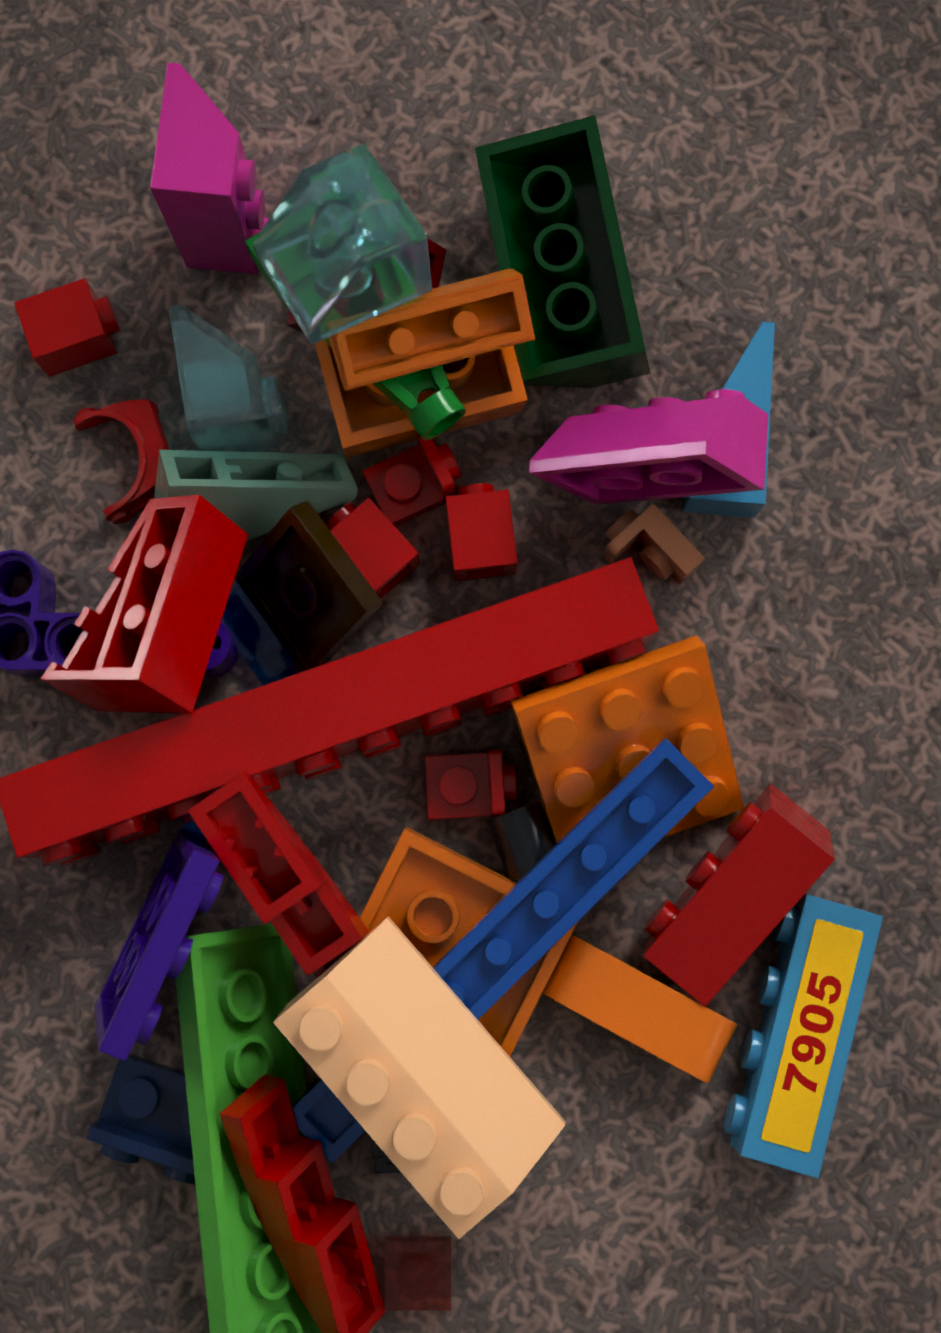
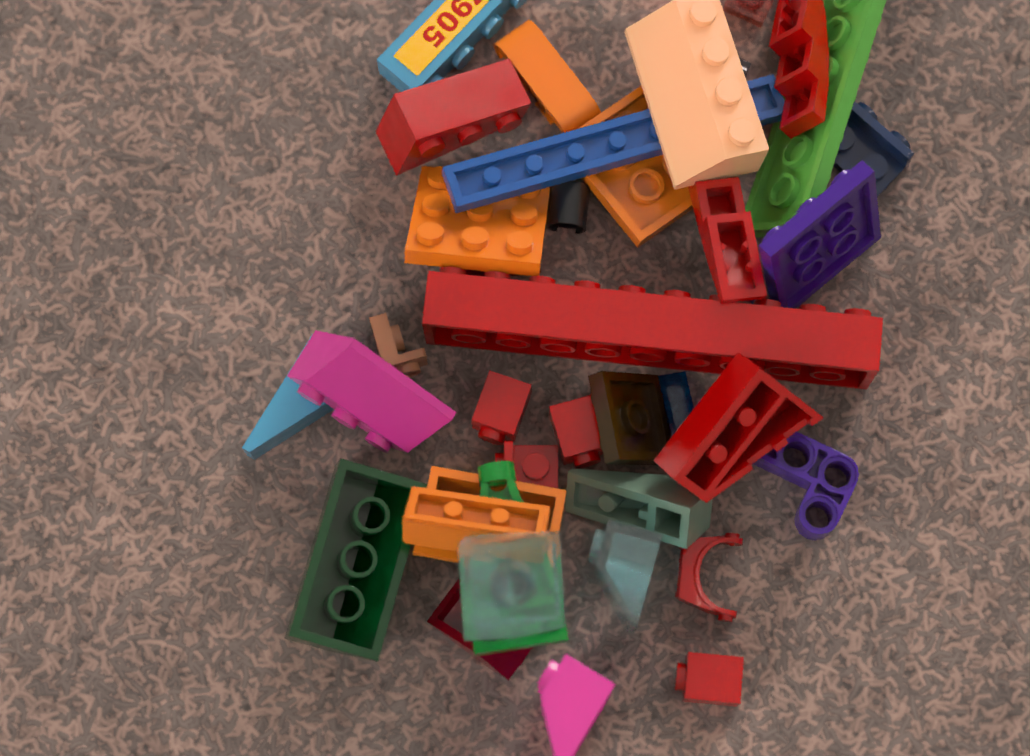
camera: 150 degrees left, 5 degrees down
(469, 785) = (585, 256): red bracket -> none

